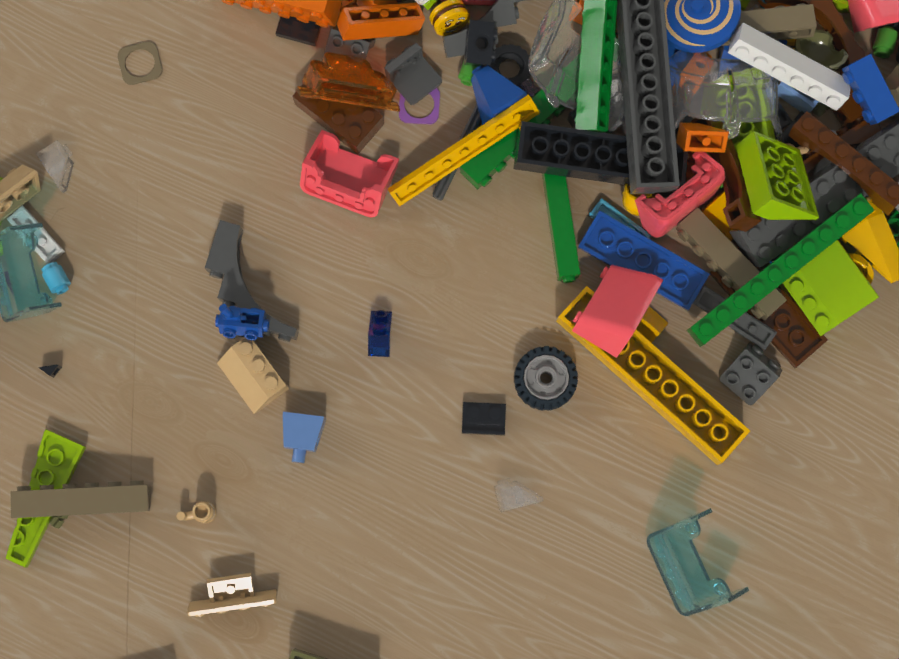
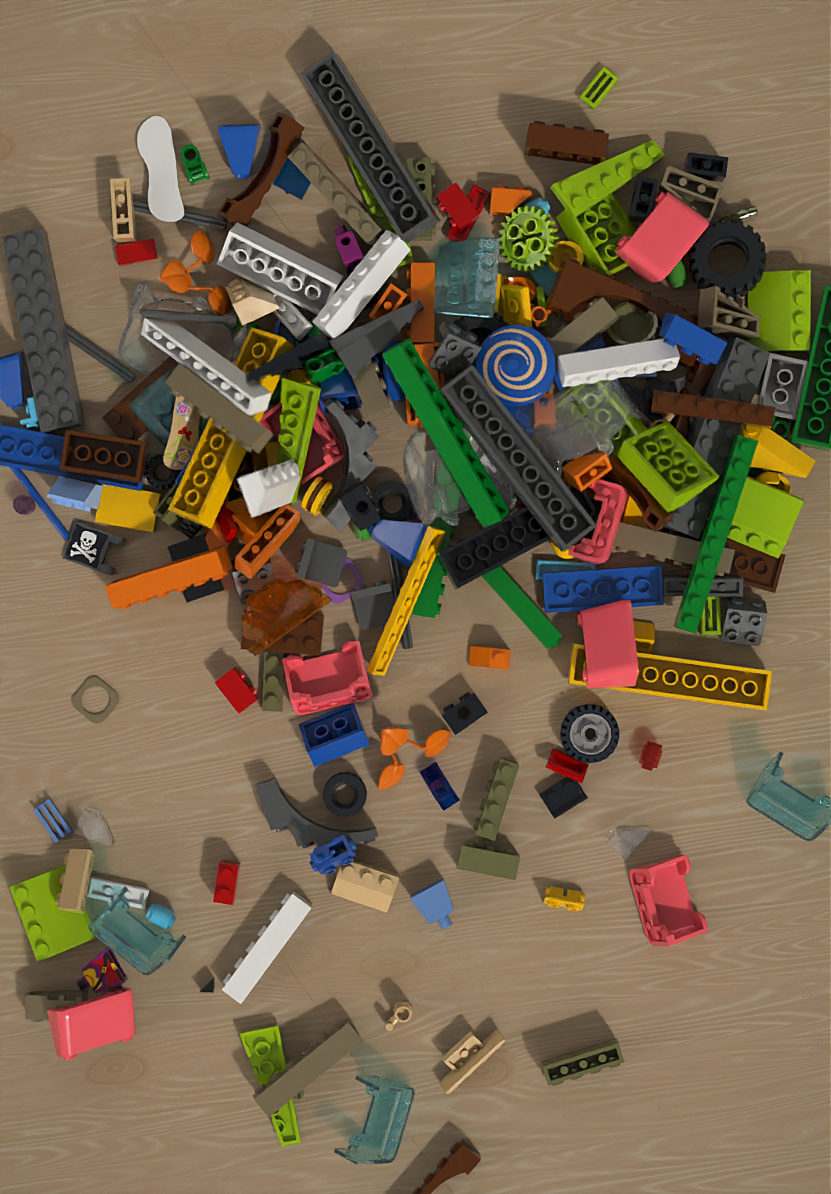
camera: 30 degrees left, 10 degrees up
(19, 135) = (43, 820): none -> medium blue tile
(113, 604) = (383, 1124): none -> clear light blue windscreen
(126, 369) = (267, 947): none -> white brick
(133, 288) = (226, 882): none -> red brick
(263, 132) = (237, 690): none -> red brick
(284, 269) = (344, 779): none -> black tyre
(298, 149) = (273, 682): none -> olive plate
(319, 226) = (333, 734): none -> blue slope
(367, 256) = (393, 738): none -> orange plant
(376, 428) = (488, 860): none -> olive brick
(422, 378) = (497, 798): none -> olive brick
(426, 519) = (571, 901): none -> yellow hinge
(432, 136) = (373, 604): none -> dark grey bracket
(436, 291) = (458, 723): none -> black brick
(503, 252) = (489, 657): none -> orange slope
(505, 393) = (567, 765): none -> red tile
(512, 577) = (666, 902): none -> coral windscreen
(587, 435) = (650, 755): none -> clear red brick
(714, 364) = (710, 624): none -> lime tile

